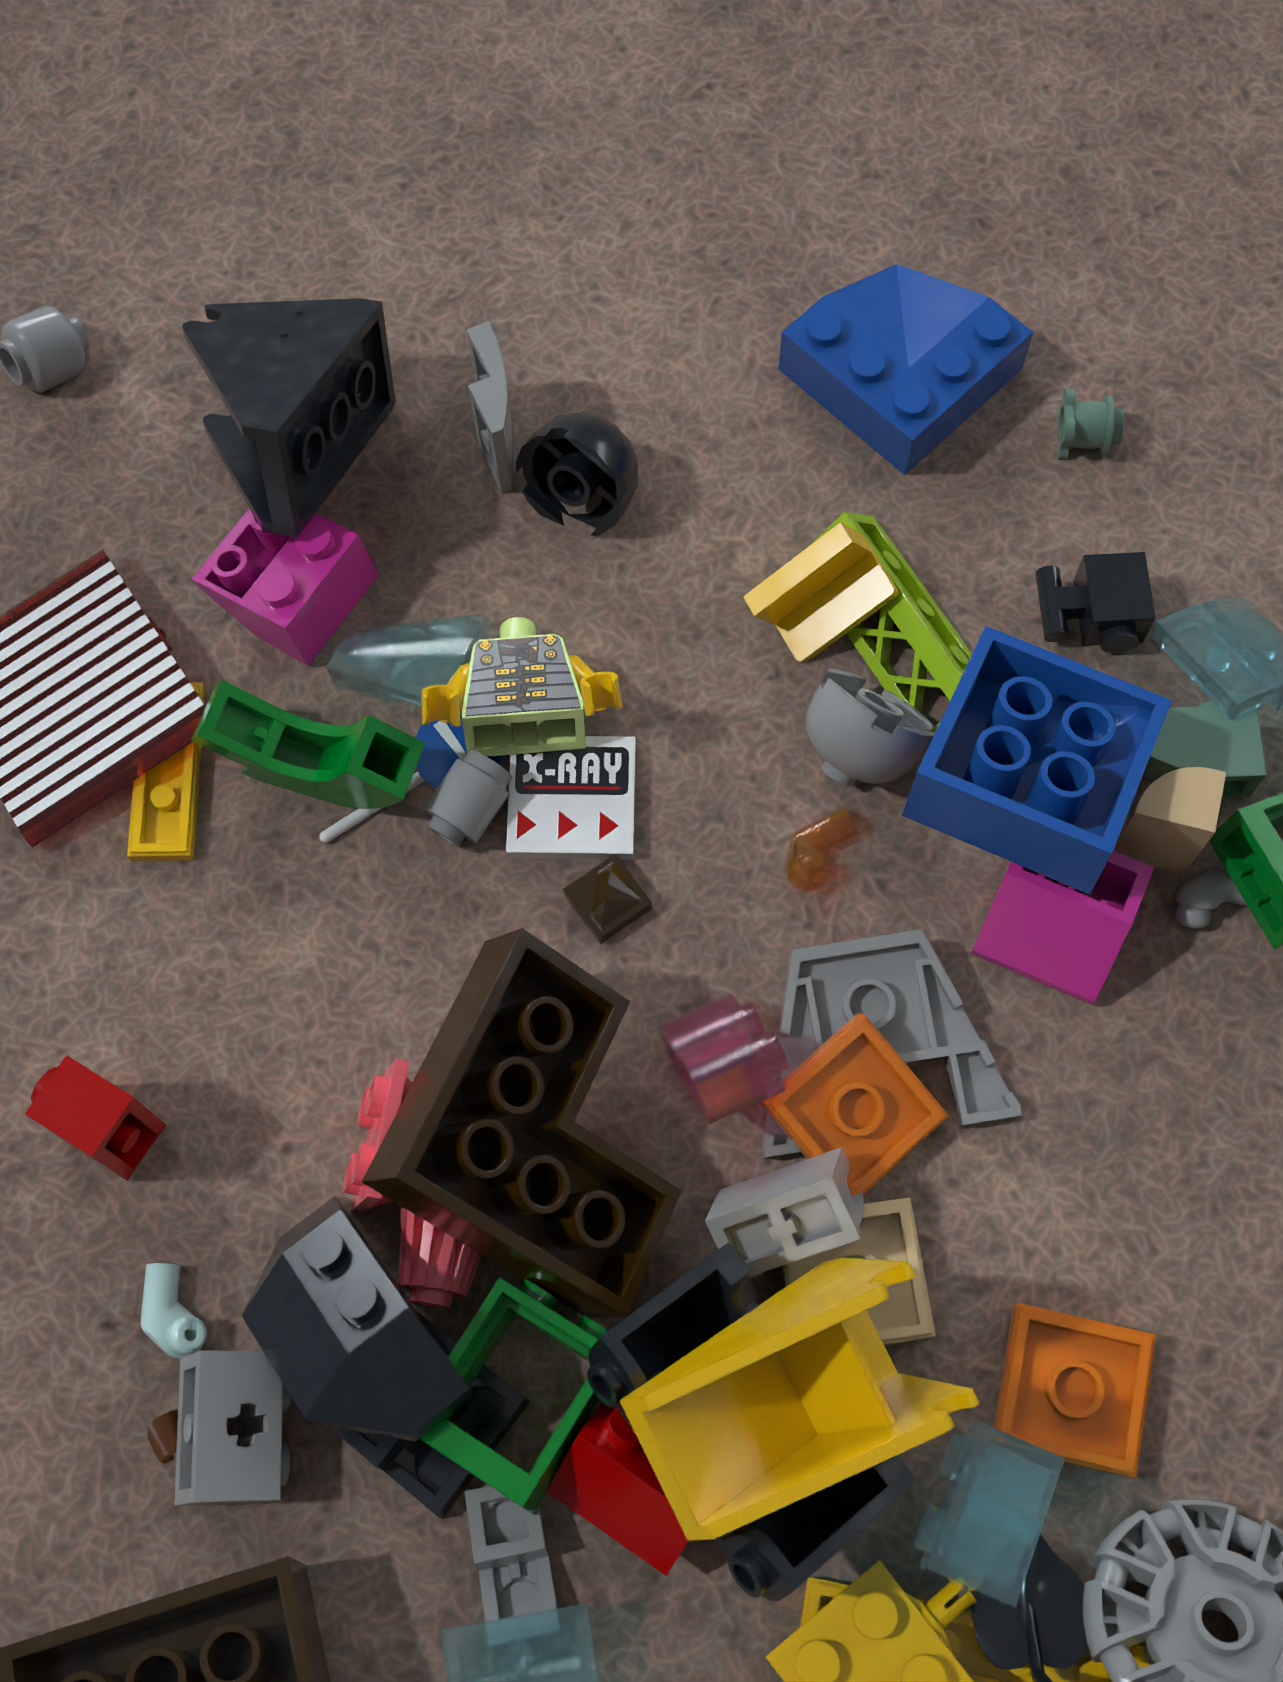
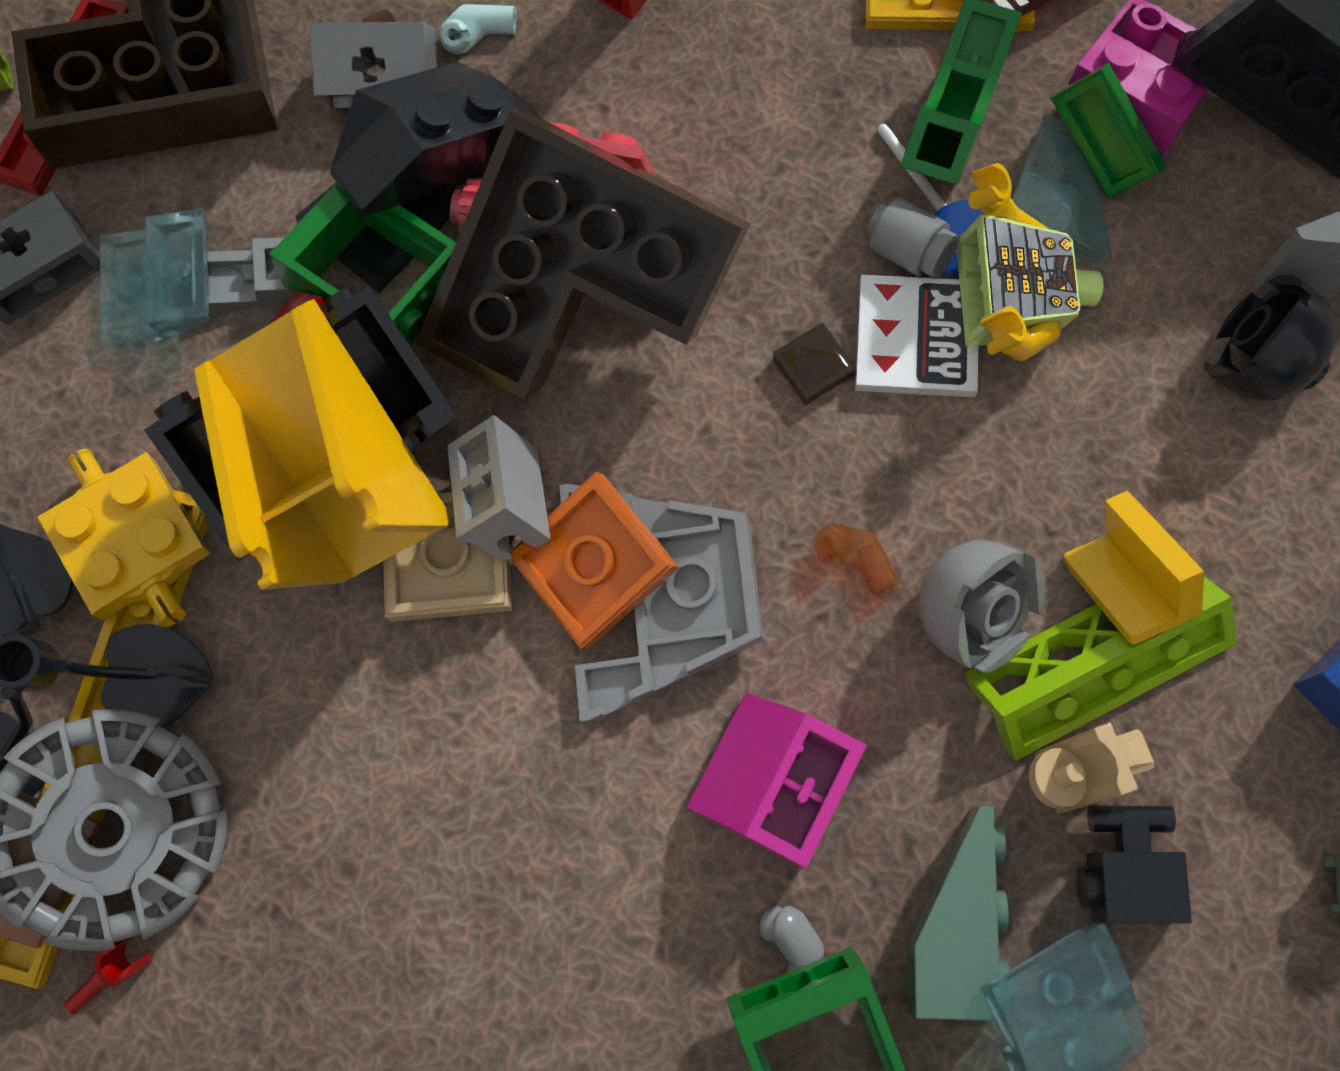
camera: 100 degrees right, 5 degrees up
(351, 607) = (1108, 131): none -> green tile
(724, 1057) = (642, 440): clear pink brick -> none
(988, 1513) = (211, 628): clear light blue brick -> none
(1021, 610) = (1088, 768): none -> tan hips
(1037, 759) = (923, 745): blue slope -> none
(1076, 1388) = (328, 738): orange plate -> none
(1174, 819) = (868, 899): tan brick -> none

